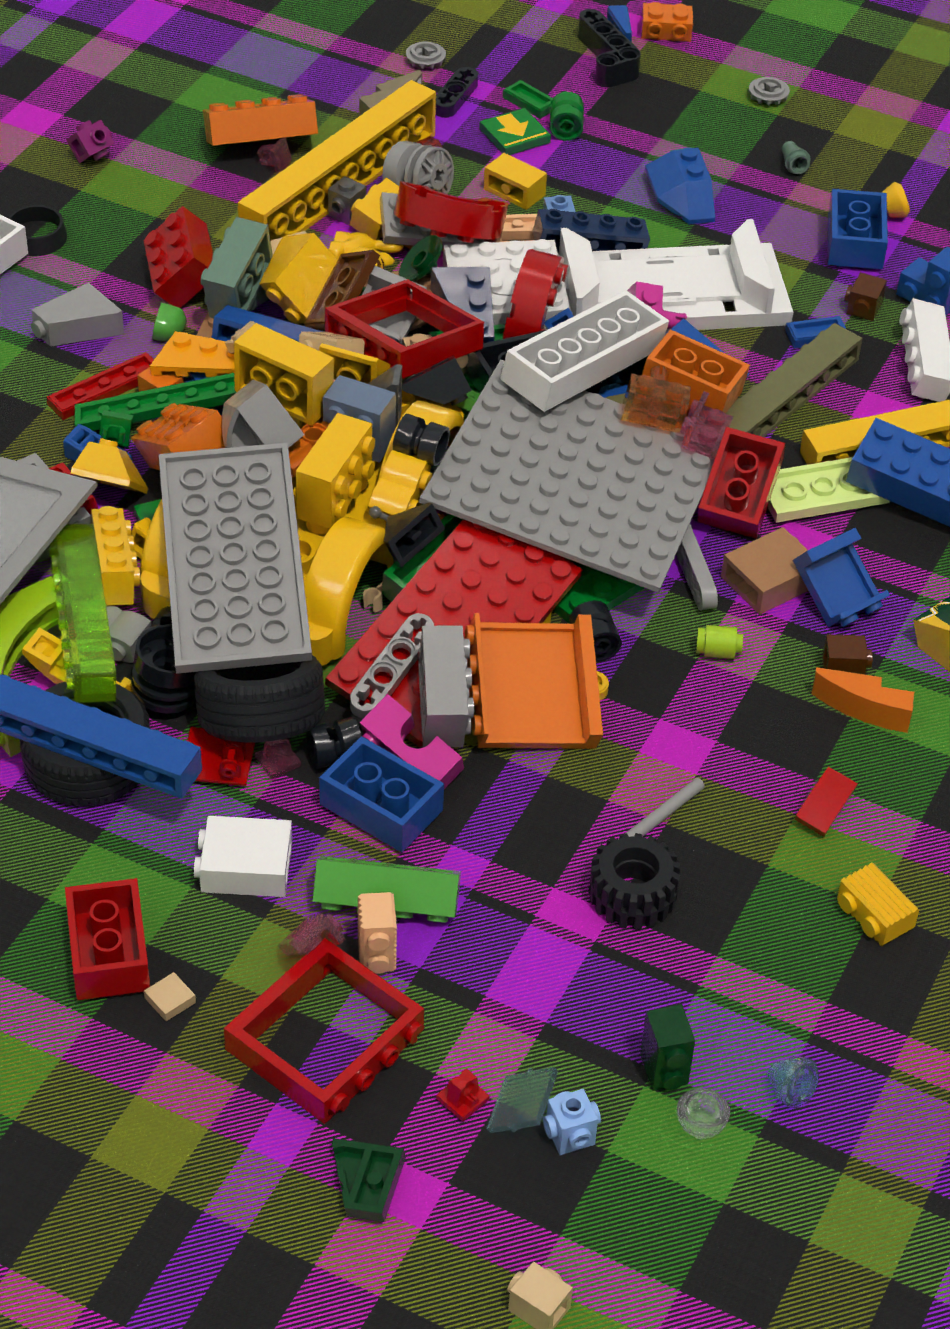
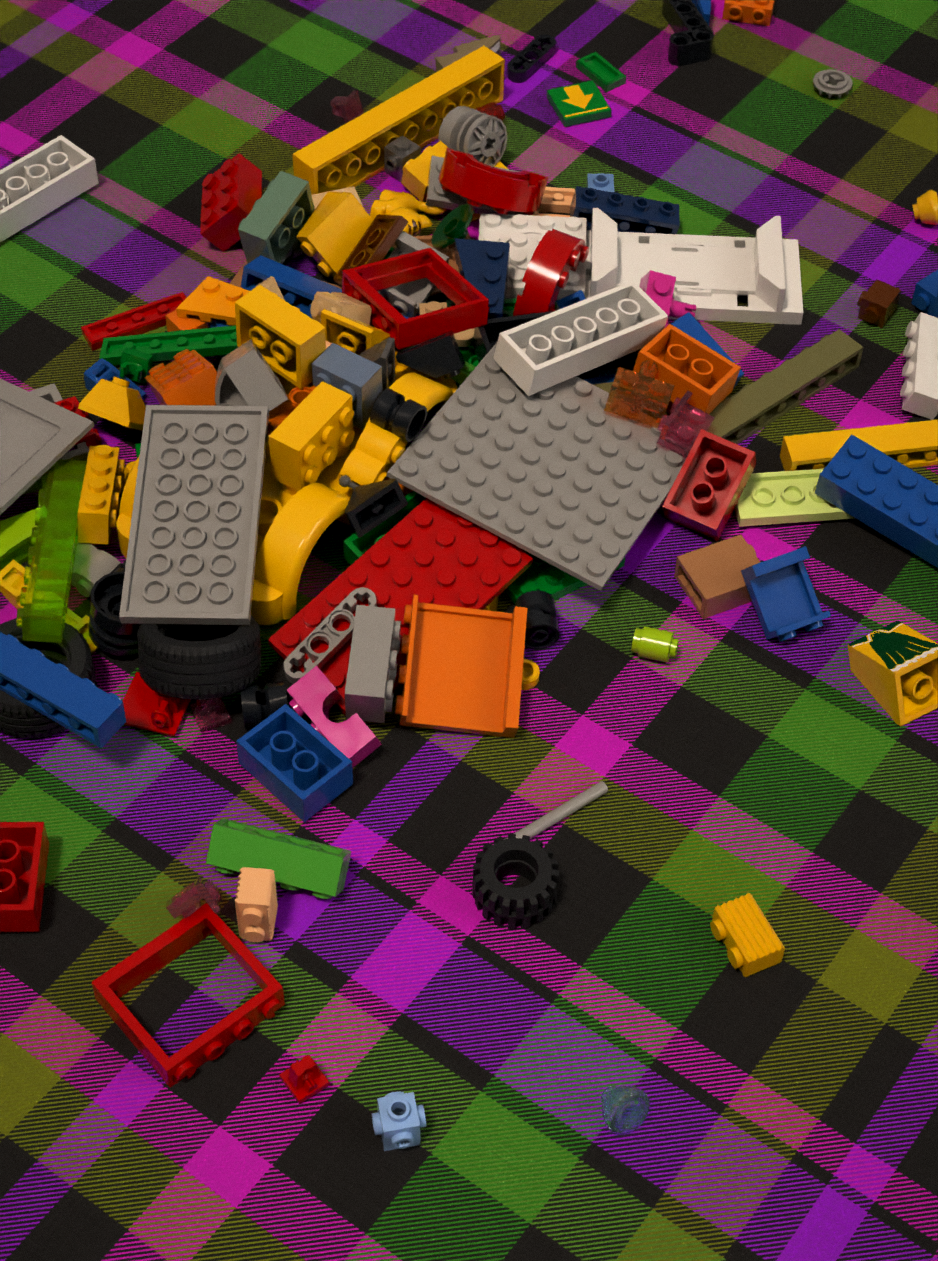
camera: 10 degrees right, 5 degrees up
(44, 244) = (116, 175): black tyre -> none
(77, 317) = (126, 251): light grey slope -> none
(90, 141) = (178, 78): magenta brick -> none
(168, 321) = (209, 263): bright green piece -> none
(169, 996) = (55, 940): tan tile -> none
(244, 856) = (155, 808): white brick -> none
(260, 121) = (337, 72): orange brick -> none
(367, 1177) = (194, 1150): dark green wing -> none
(374, 597) = (336, 559): tan hand -> none
(425, 55) = (519, 15): light grey gear -> none
(515, 181) = (566, 153): yellow brick -> none
(522, 1100) = (357, 1092): clear light blue piece -> none
(566, 116) = (629, 92): green wheel -> none
(667, 1047) = (505, 1060): dark green brick -> none
(683, 185) = (725, 173): blue wedge -> none
(697, 572) = (649, 568): light grey beam -> none
(703, 1113) = (526, 1130): clear brick -> none
(795, 158) = (842, 154): sand green cone -> none
(805, 331) = (812, 332): blue tile -> none
(826, 801) = (721, 821): red slope -> none
(847, 653) = (775, 675): reddish brown brick -> none
(857, 229) = (884, 233): blue brick -> none
(864, 698) = (783, 719): orange slope -> none

